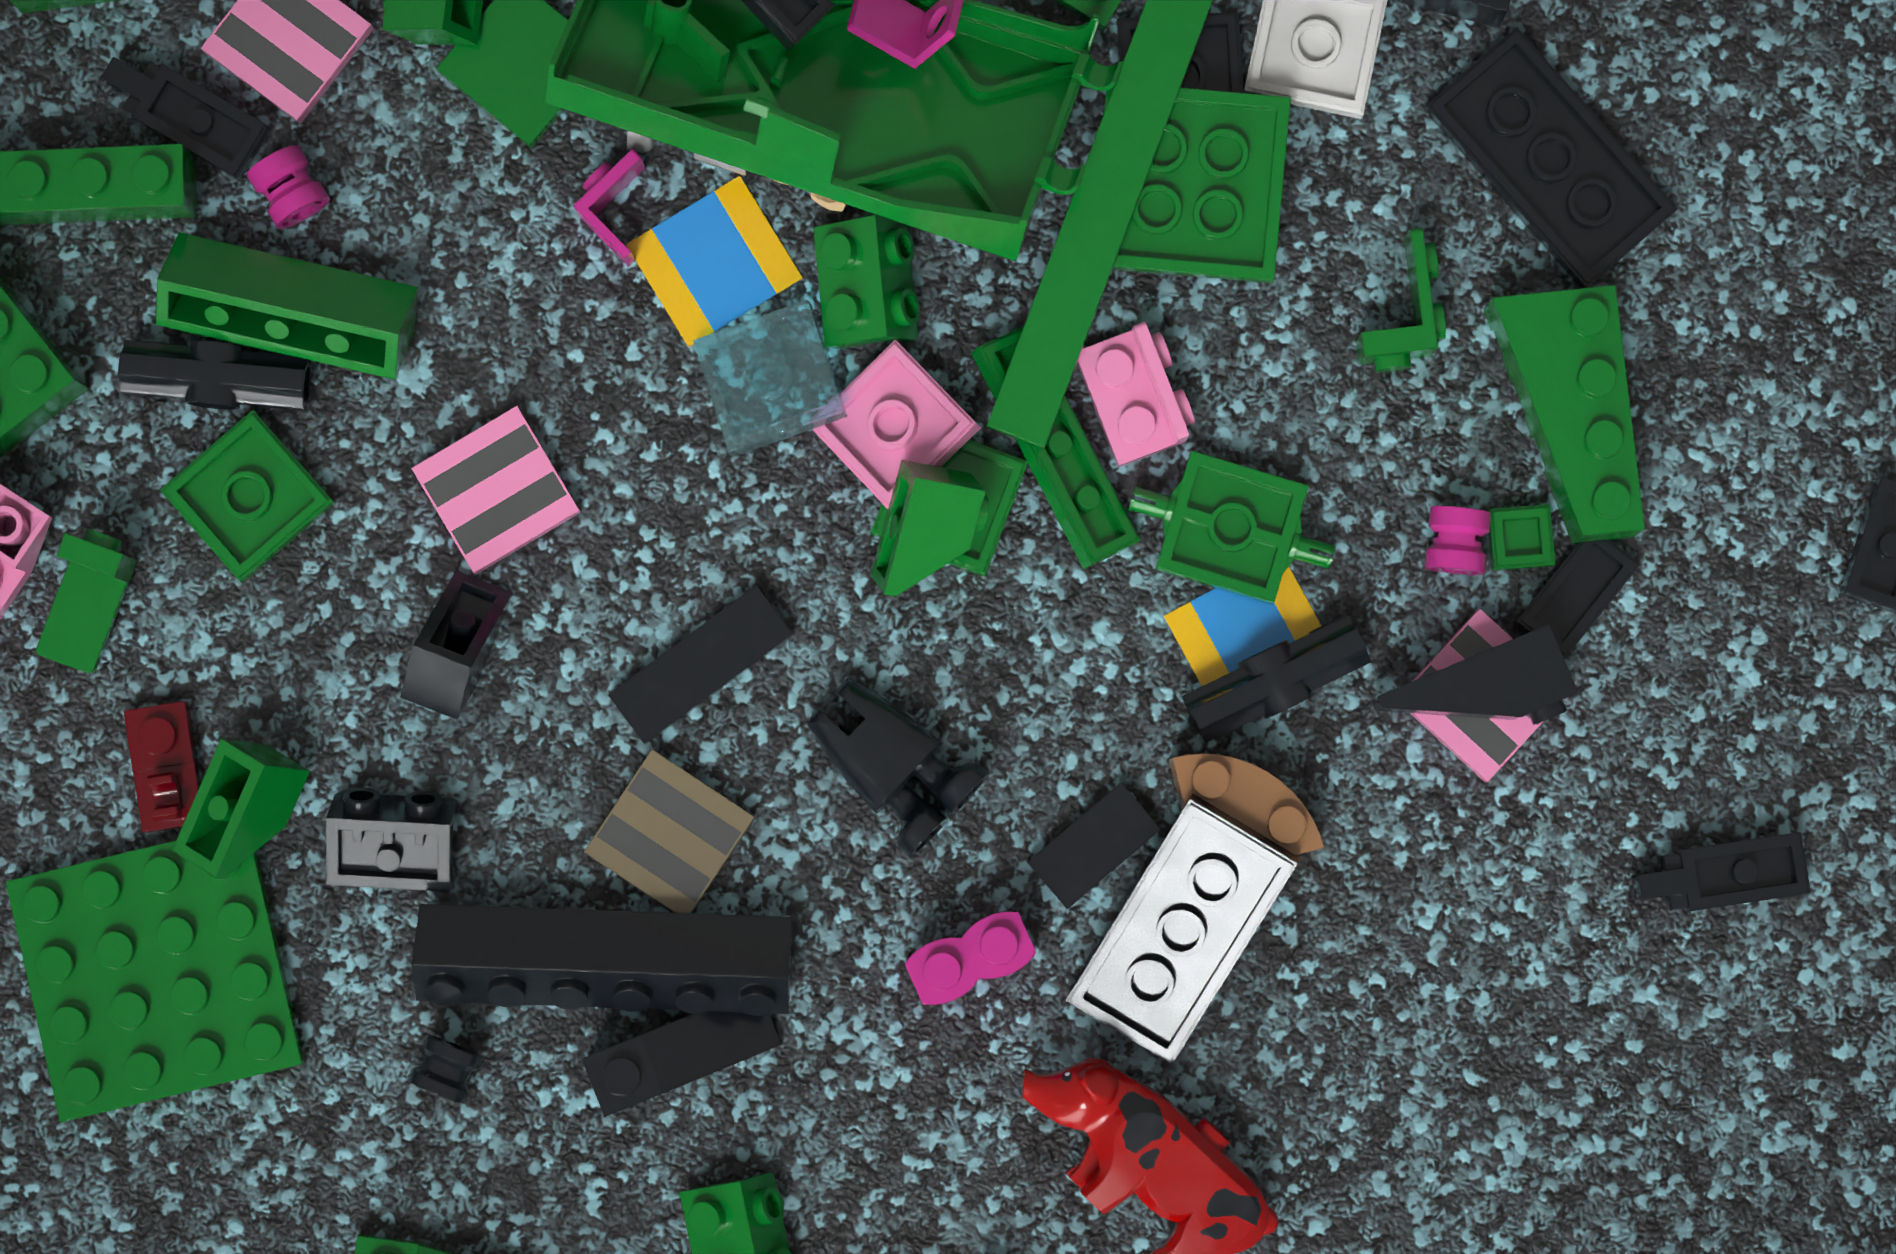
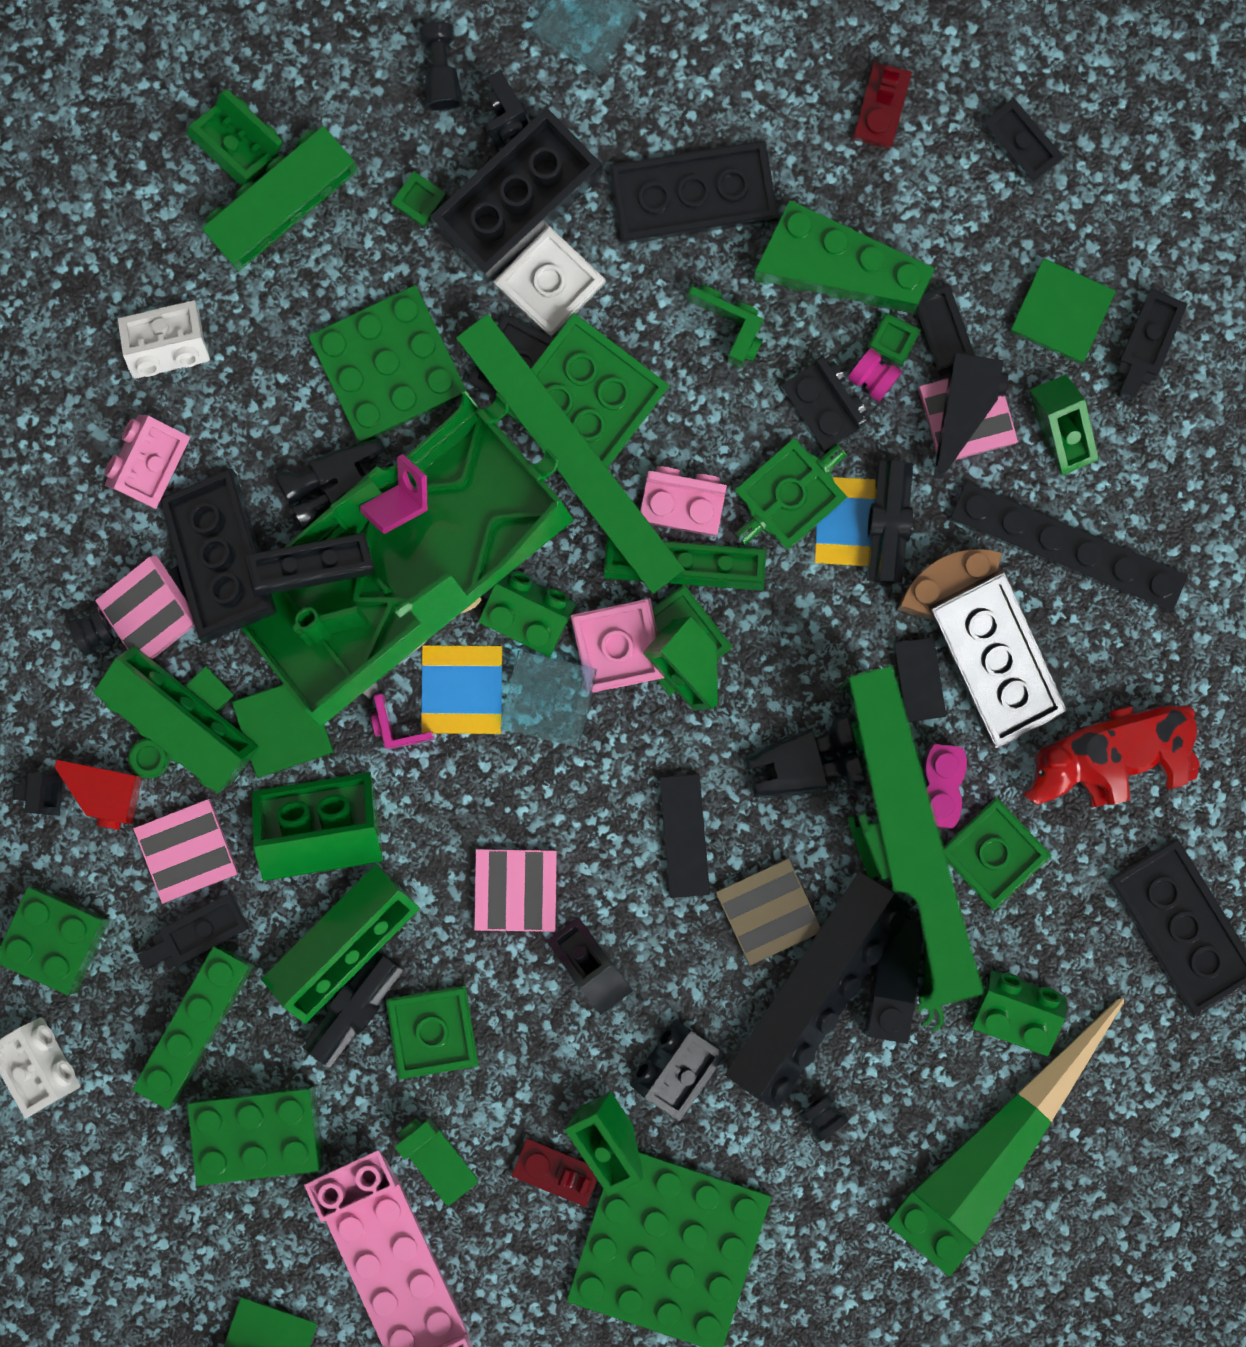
camera: 55 degrees left, 0 degrees up
(288, 187) = (281, 899): dark pink wheel -> none
(419, 182) = (316, 826): none -> green slope
(858, 941) = (907, 840): none -> green piece
(927, 1083) = (995, 853): none -> green tile
(1377, 499) = (825, 404): none -> black bracket
(1390, 935) = (1068, 547): none -> black plate
(1549, 828) = (1065, 423): none -> green slope
(1697, 735) = (1062, 311): none -> green tile
(1821, 333) = (882, 105): none -> dark red plate

